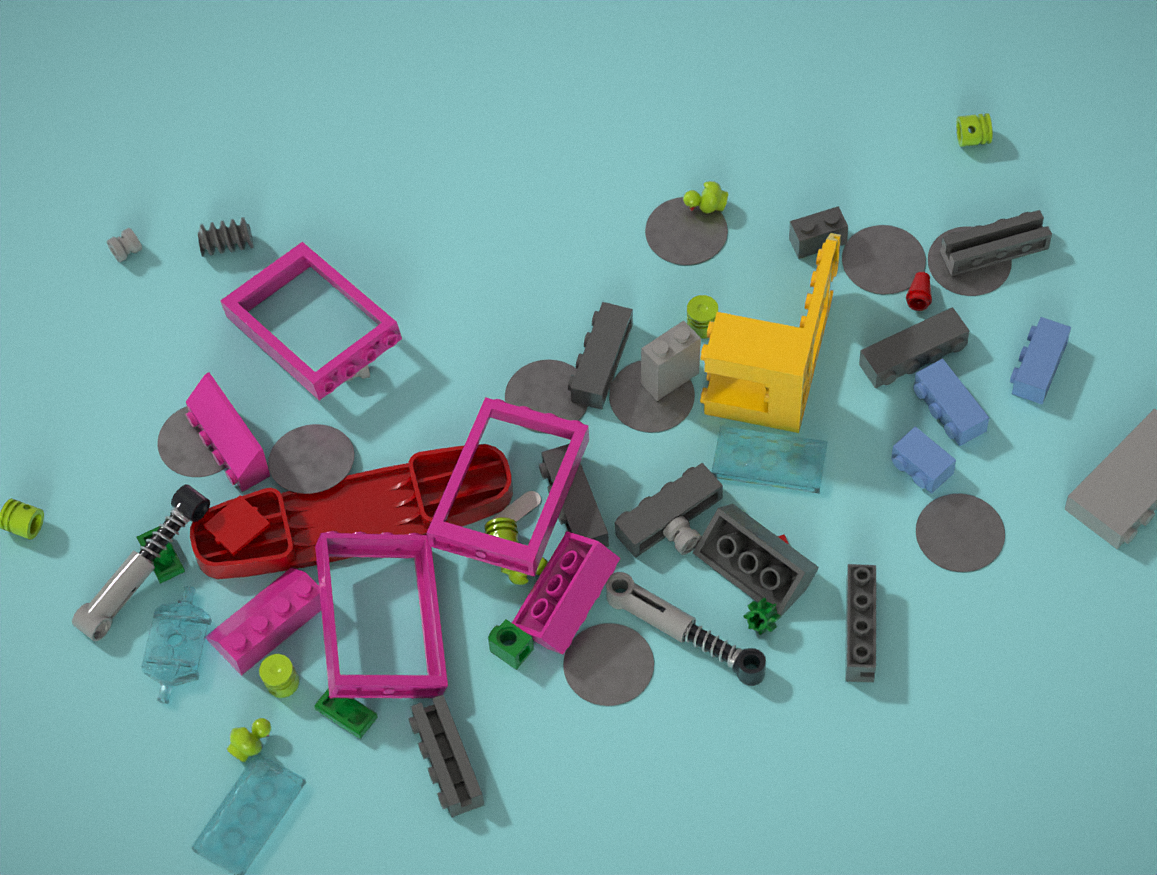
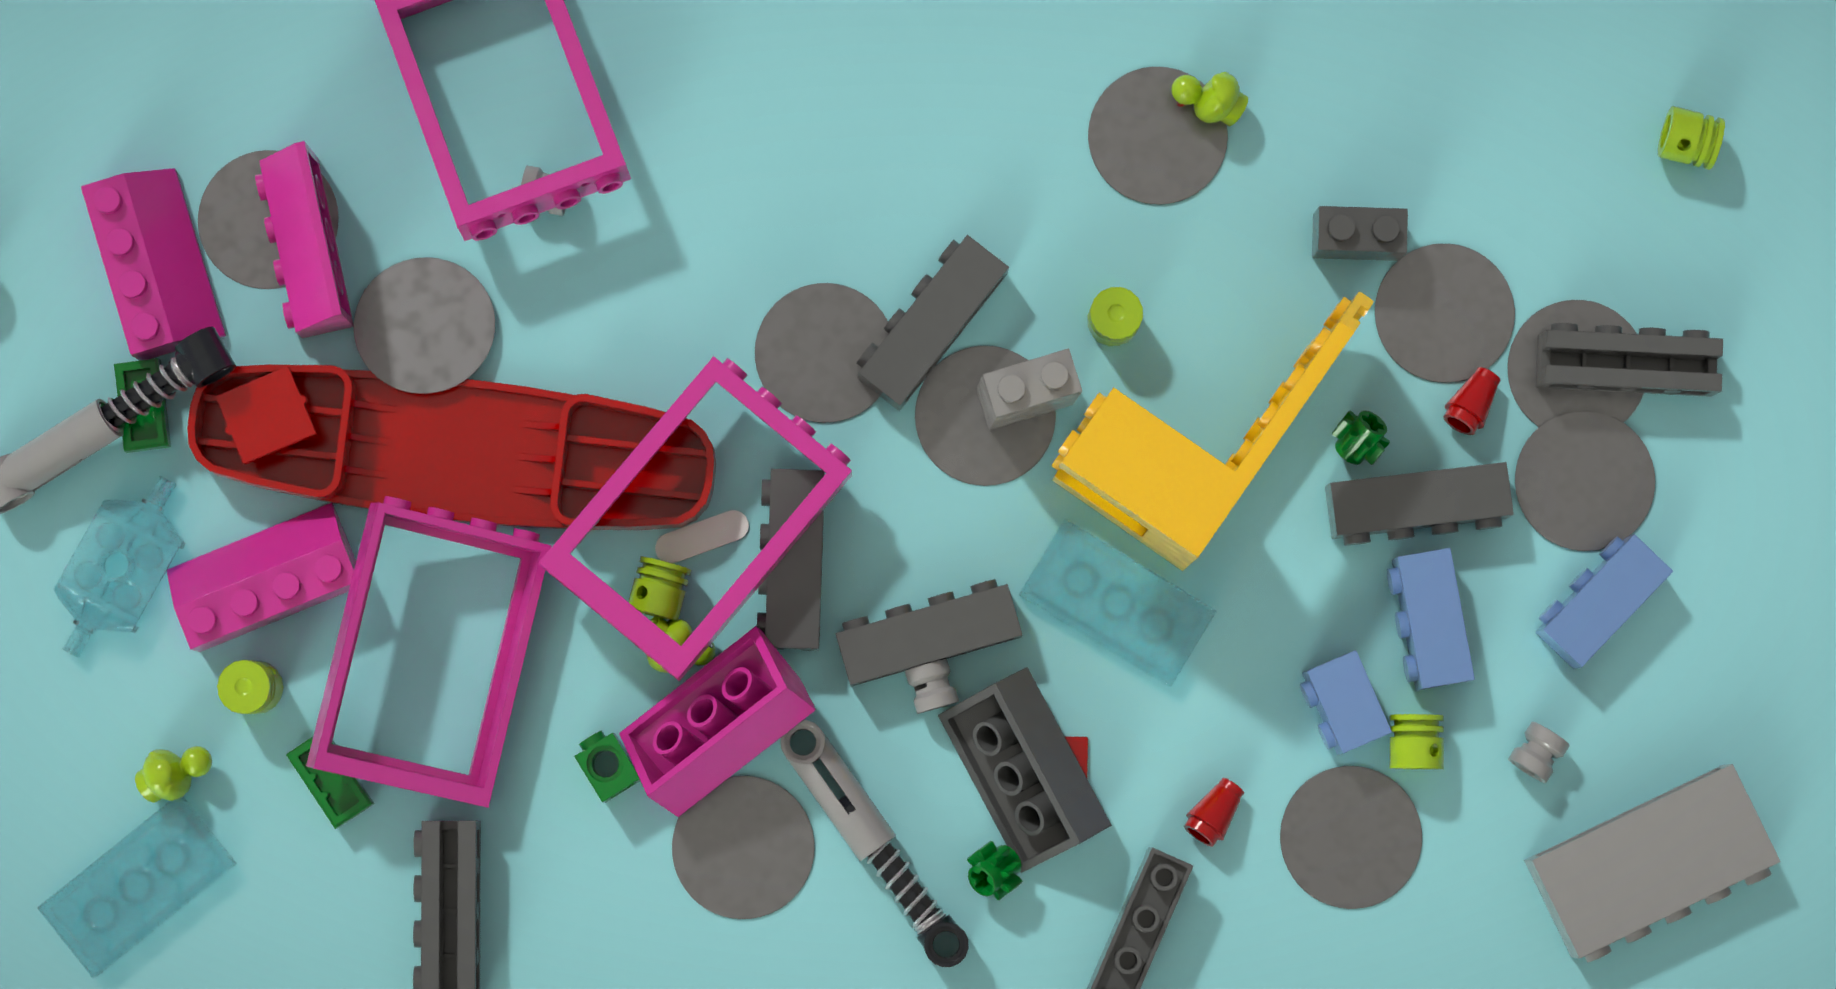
camera: 10 degrees right, 25 degrees up
(135, 475) = (151, 260): none -> dark pink slope
(866, 327) = (1361, 437): none -> green gear
(875, 544) = (1214, 812): none -> red cone
(973, 464) = (1416, 742): none -> lime piece
(1000, 310) = (1584, 480): none -> flat silver sticker
(1044, 445) = (1537, 754): none -> light grey wheel

